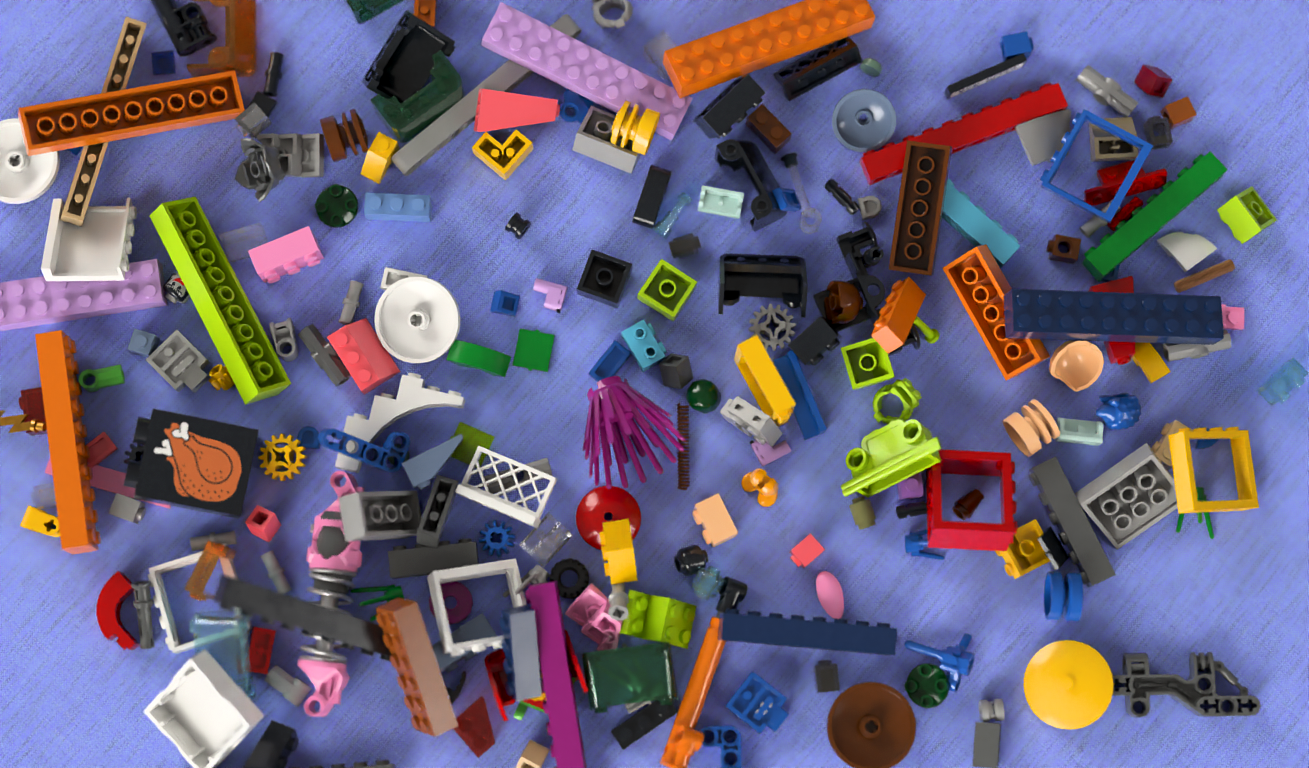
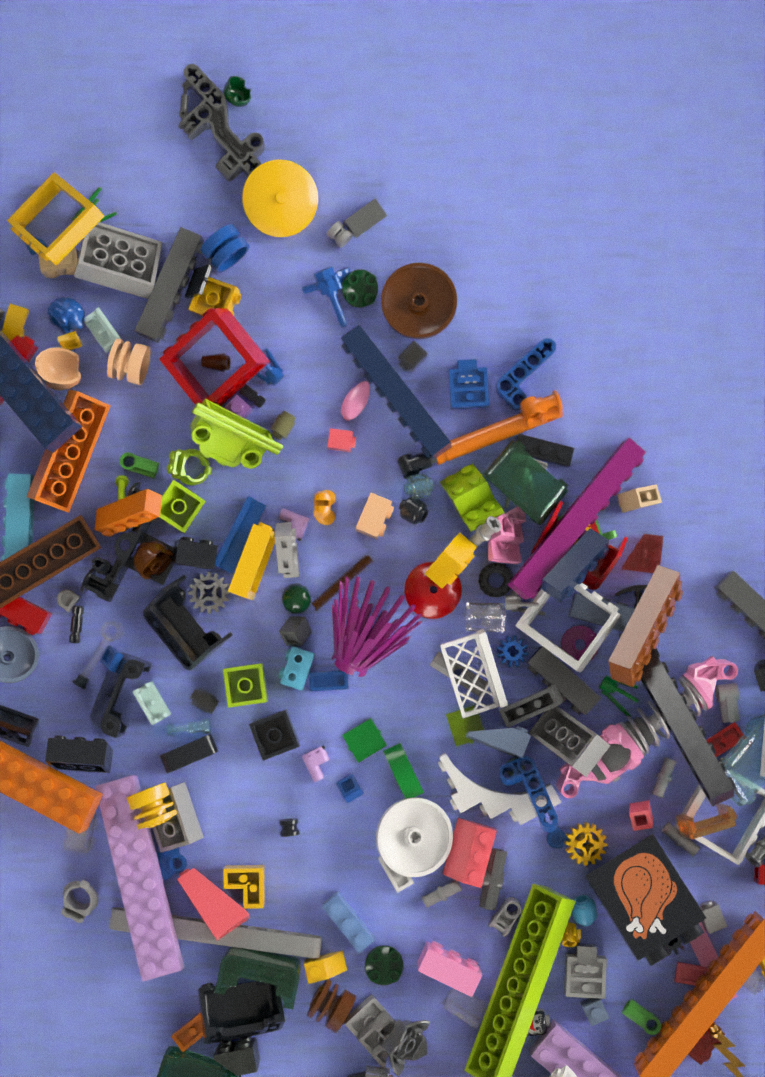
camera: 130 degrees left, 5 degrees up
(230, 407) = (584, 910): none -> dark azure head
(371, 29) = (238, 1056): none -> pearl dark grey slope
(768, 129) = (71, 715): reddish brown brick -> none
(931, 362) = (141, 465): none -> bright green piece
(1093, 394) = (70, 341): none -> yellow tile
(1199, 731) = (236, 92): none -> dark green hair

